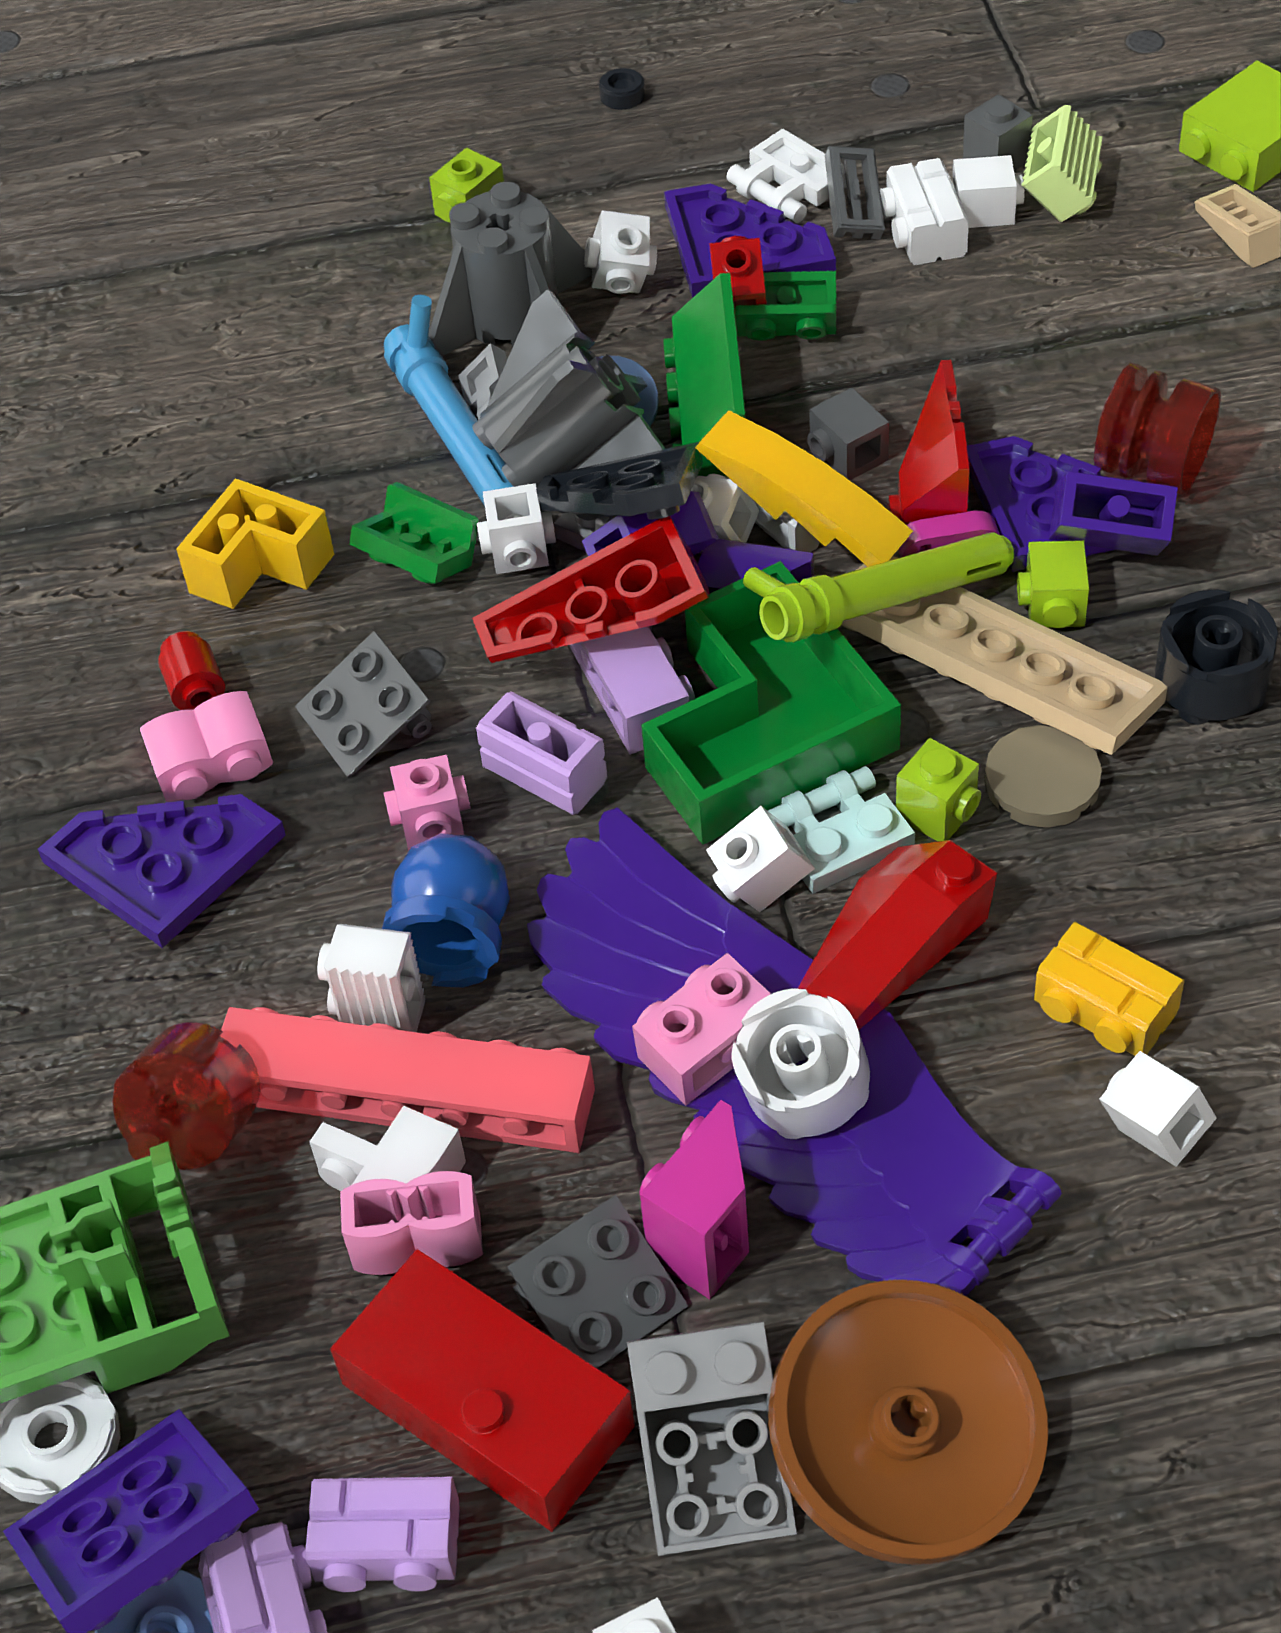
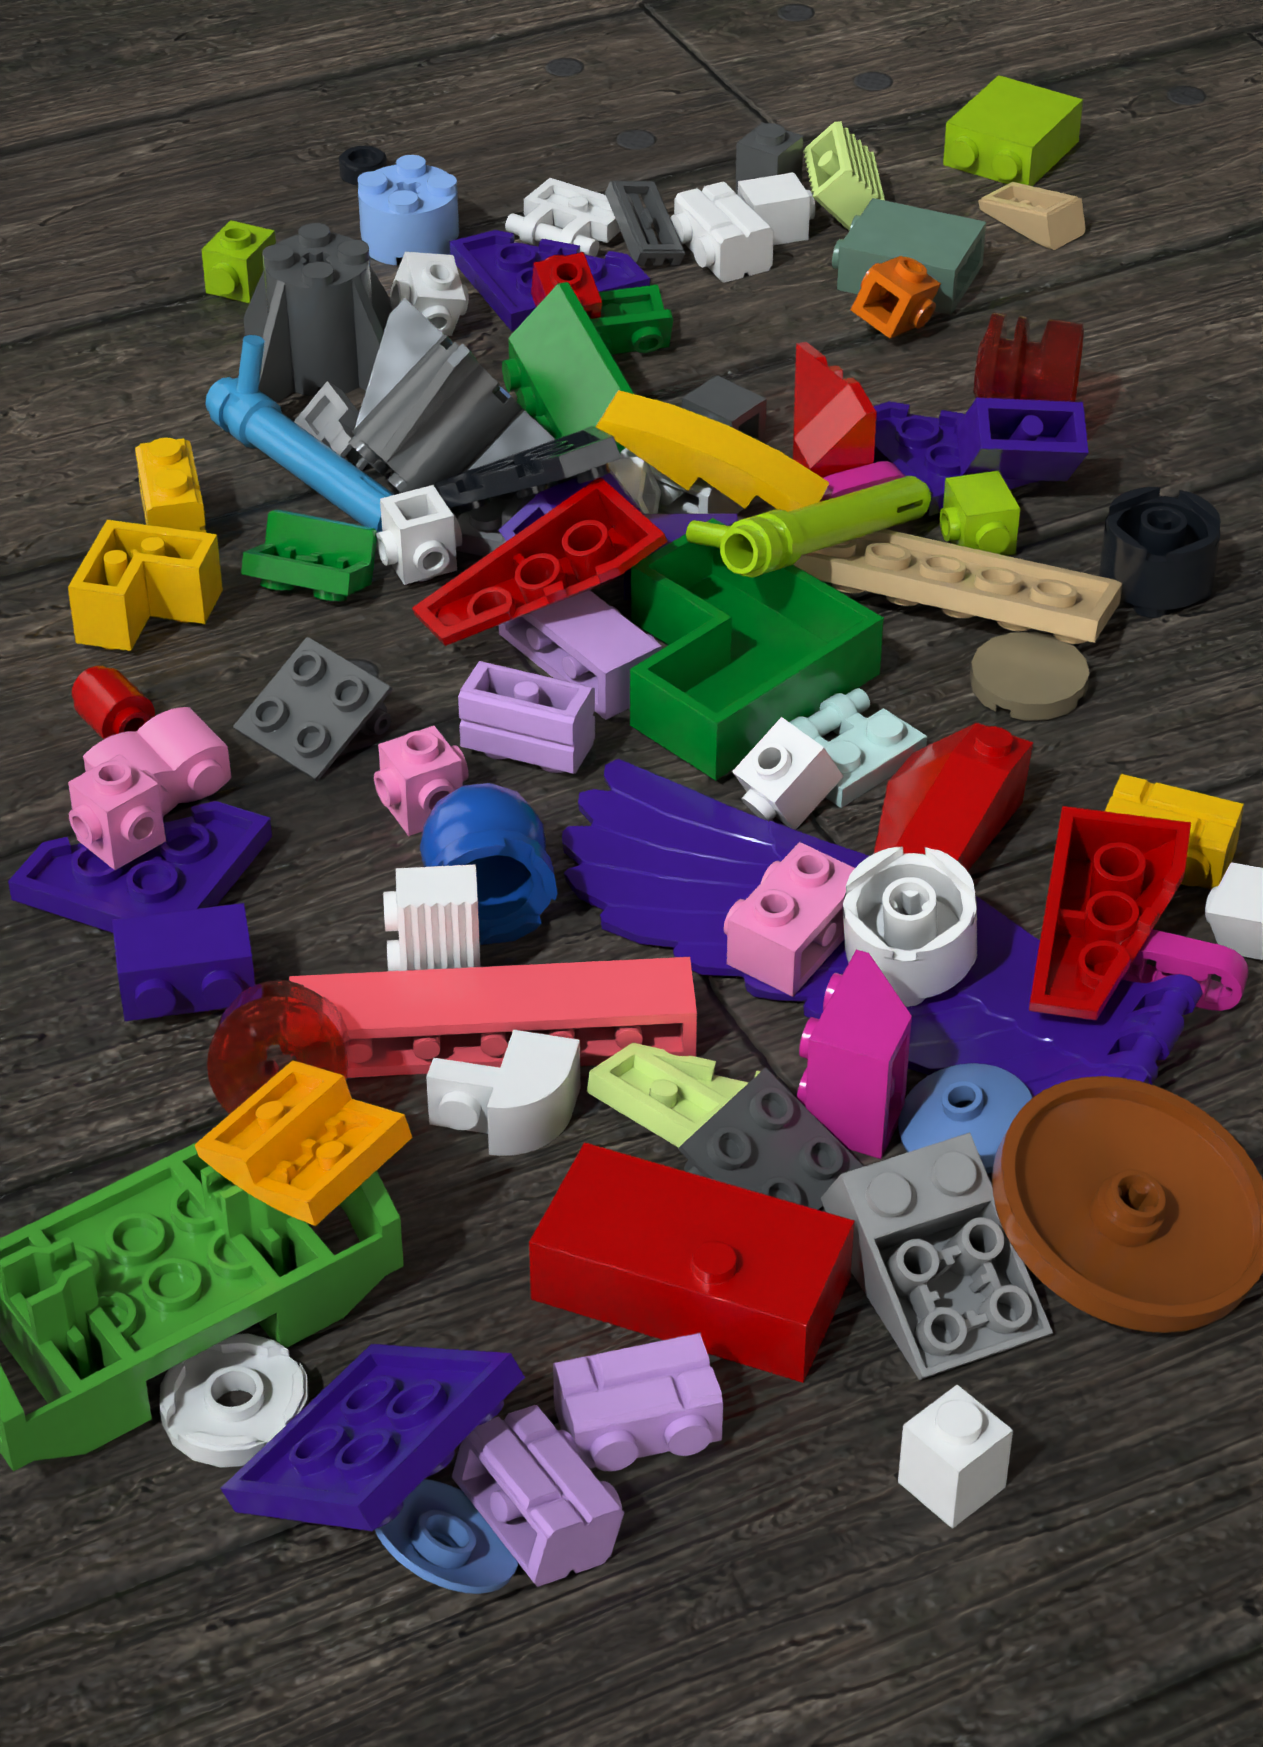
camera: 20 degrees left, 10 degrees down
(139, 800) = (117, 811): none -> bright pink brick
(139, 1223) = (303, 1142): none -> light orange slope
(152, 968) = (182, 961): none -> dark purple brick
(315, 450) = (170, 485): none -> yellow brick
(391, 1219) = (542, 1127): bright pink brick -> none
(534, 1191) = (662, 1090): none -> yellowish green wing
(636, 153) = (407, 209): none -> light blue brick
(787, 1301) = (935, 1112): none -> medium blue dish
(937, 790) = (939, 692): lime brick -> none
(1001, 1067) = (1102, 903): none -> red wedge
(1062, 314) = (896, 296): none -> orange brick
(1064, 1153) = (1195, 959): none -> dark pink beam
(1099, 263) = (942, 242): none -> sand green brick

